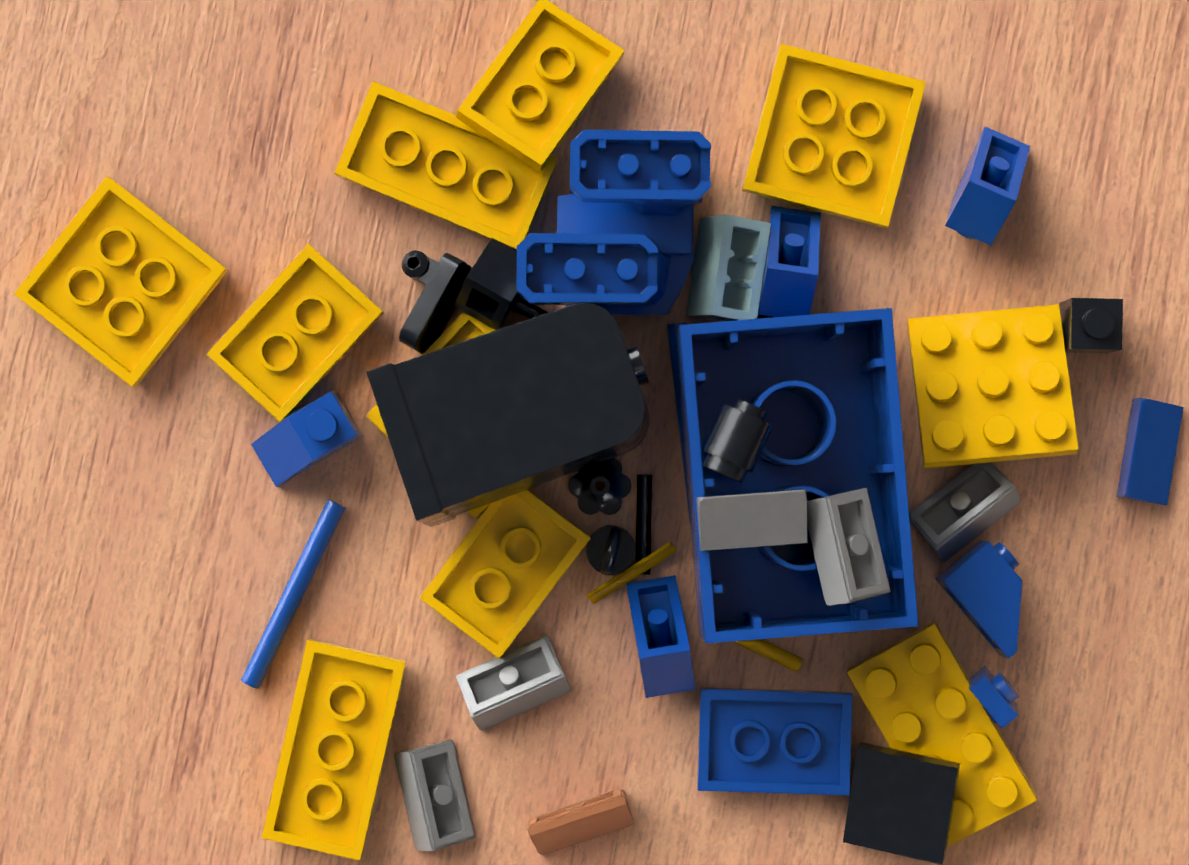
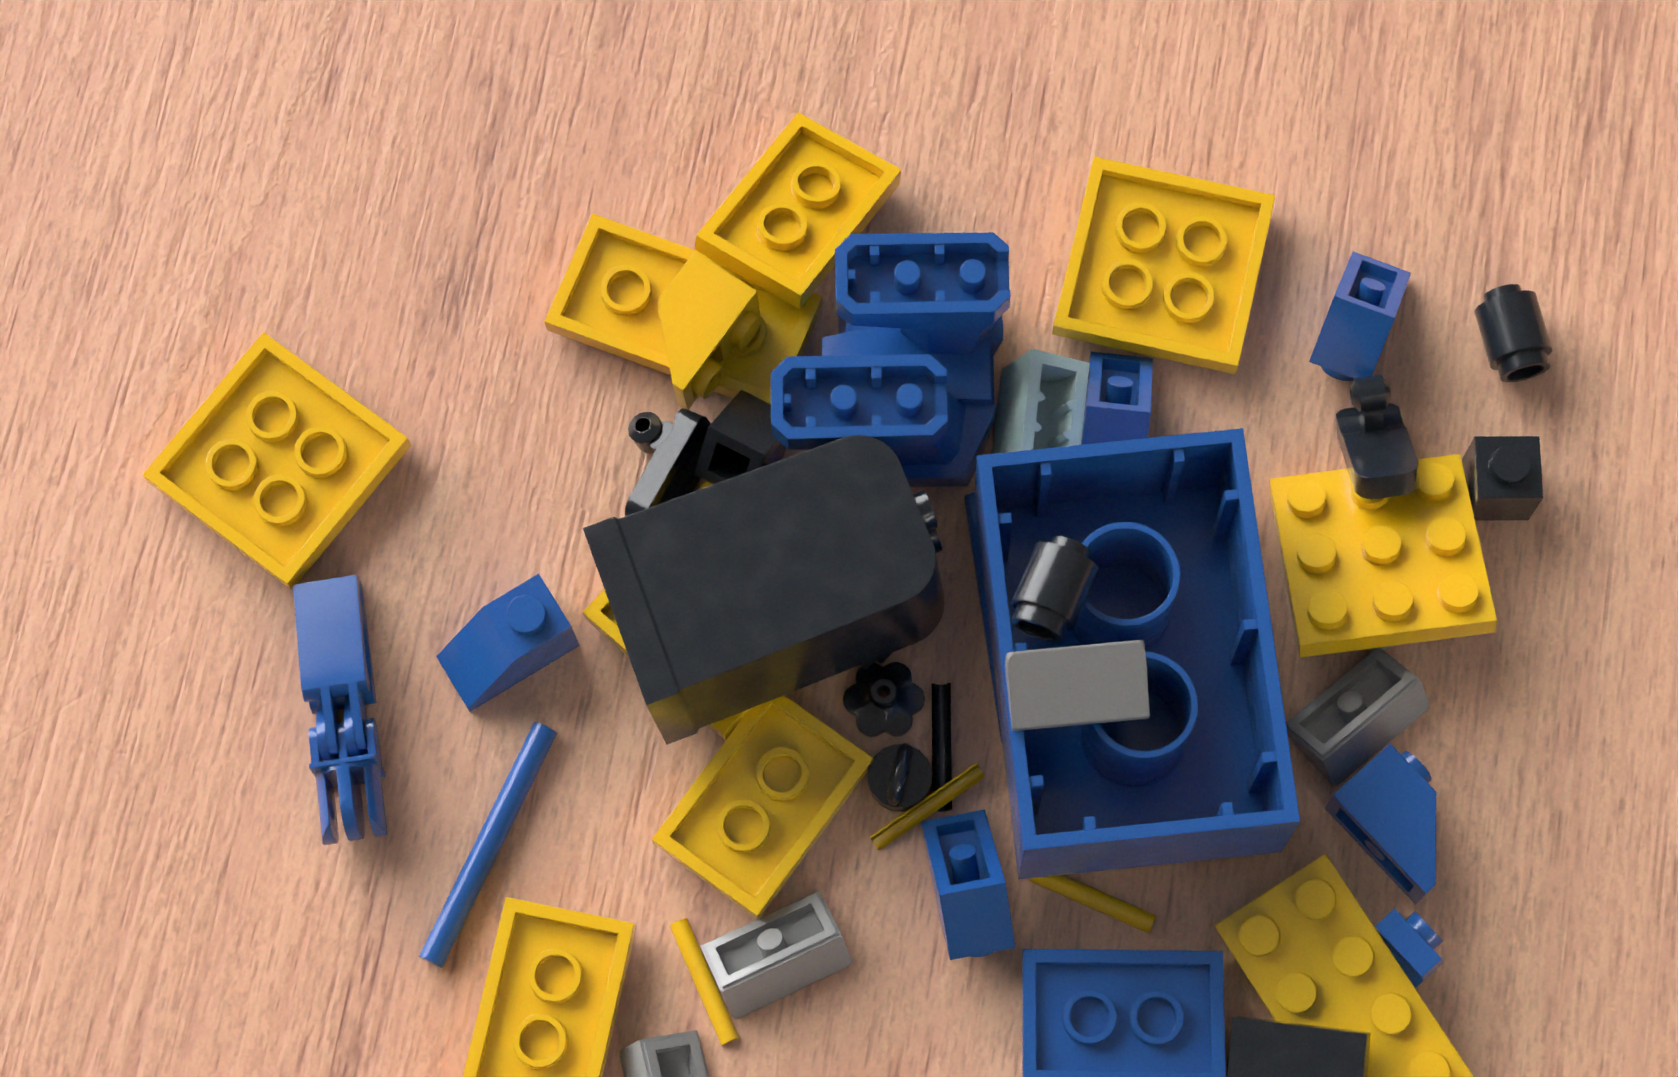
camera: 10 degrees right, 15 degrees down
(174, 457) = (333, 677): none -> blue arm
(295, 333) = (494, 514): yellow plate -> none
(458, 702) = (704, 981): none -> yellow piece
(460, 184) = (702, 321): none -> yellow slope
(846, 547) = (1200, 720): light grey slope -> none
(994, 298) = (1376, 442): none -> black piece
(1108, 203) = (1514, 333): none -> black brick
(1149, 451) = (1592, 636): blue slope -> none

